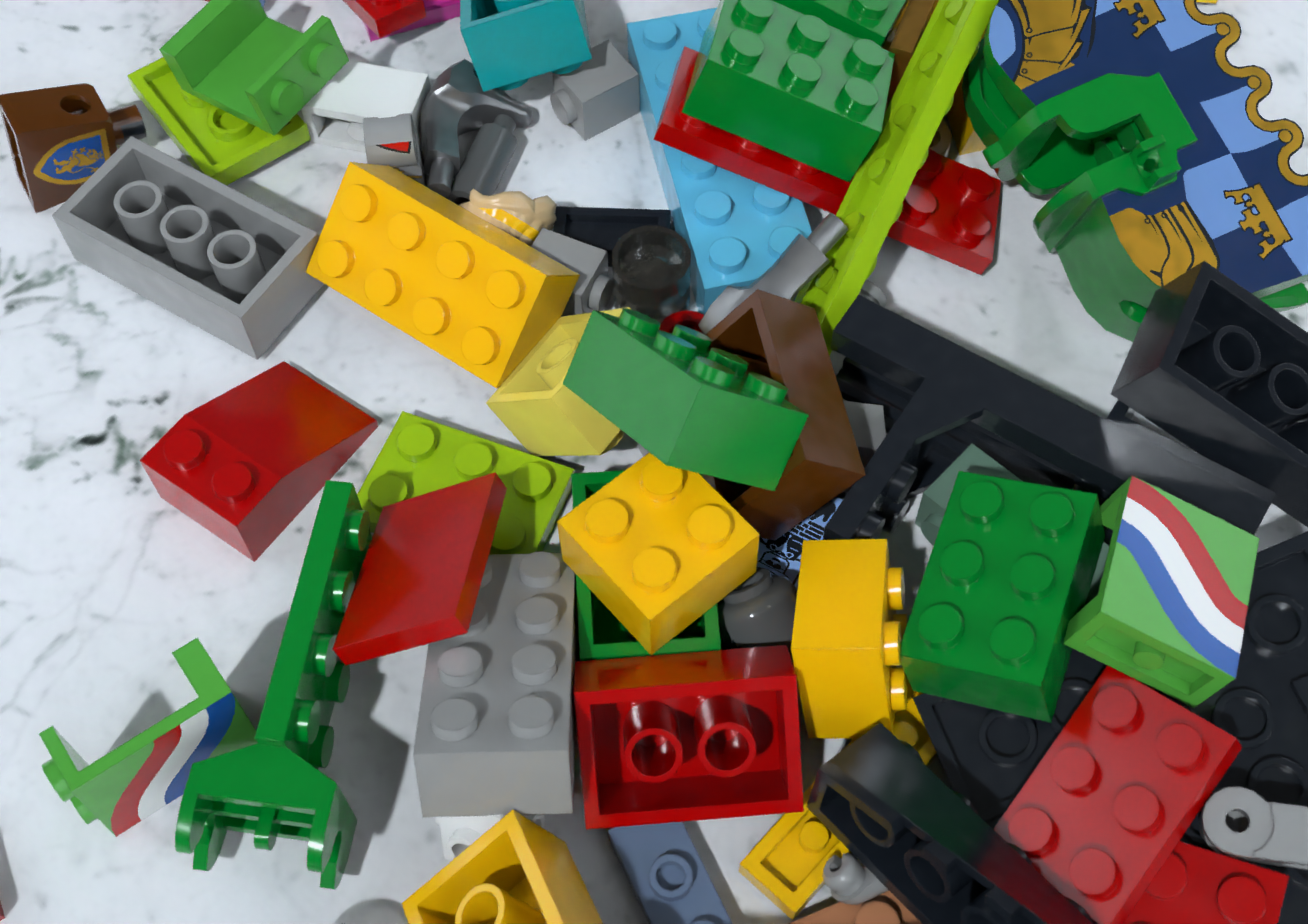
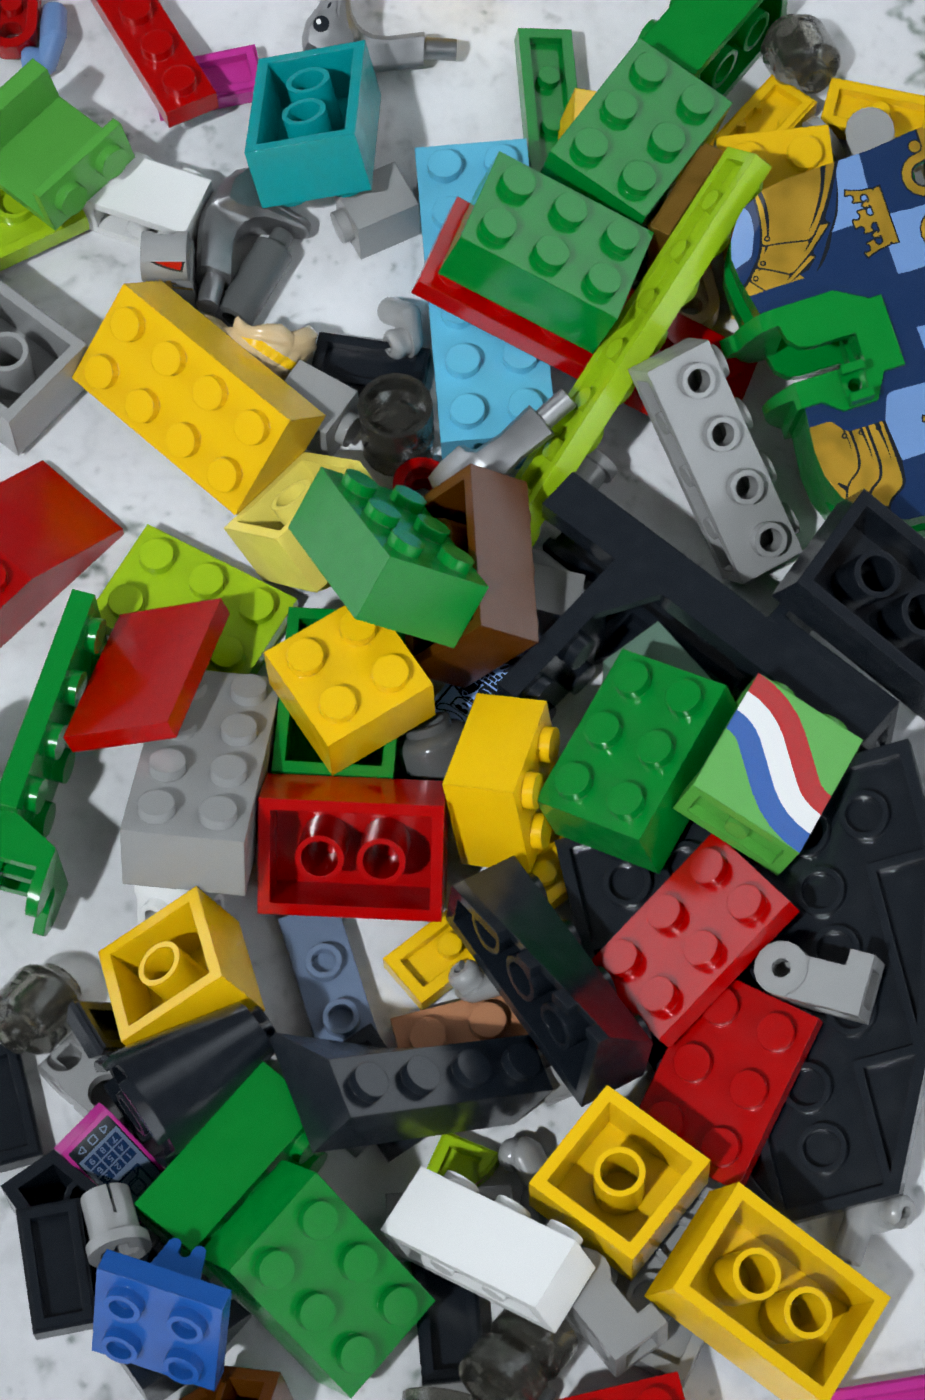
camera: 10 degrees right, 5 degrees up
(641, 190) = (408, 333): none -> light grey arm
(1000, 266) = (717, 459): none -> light grey brick

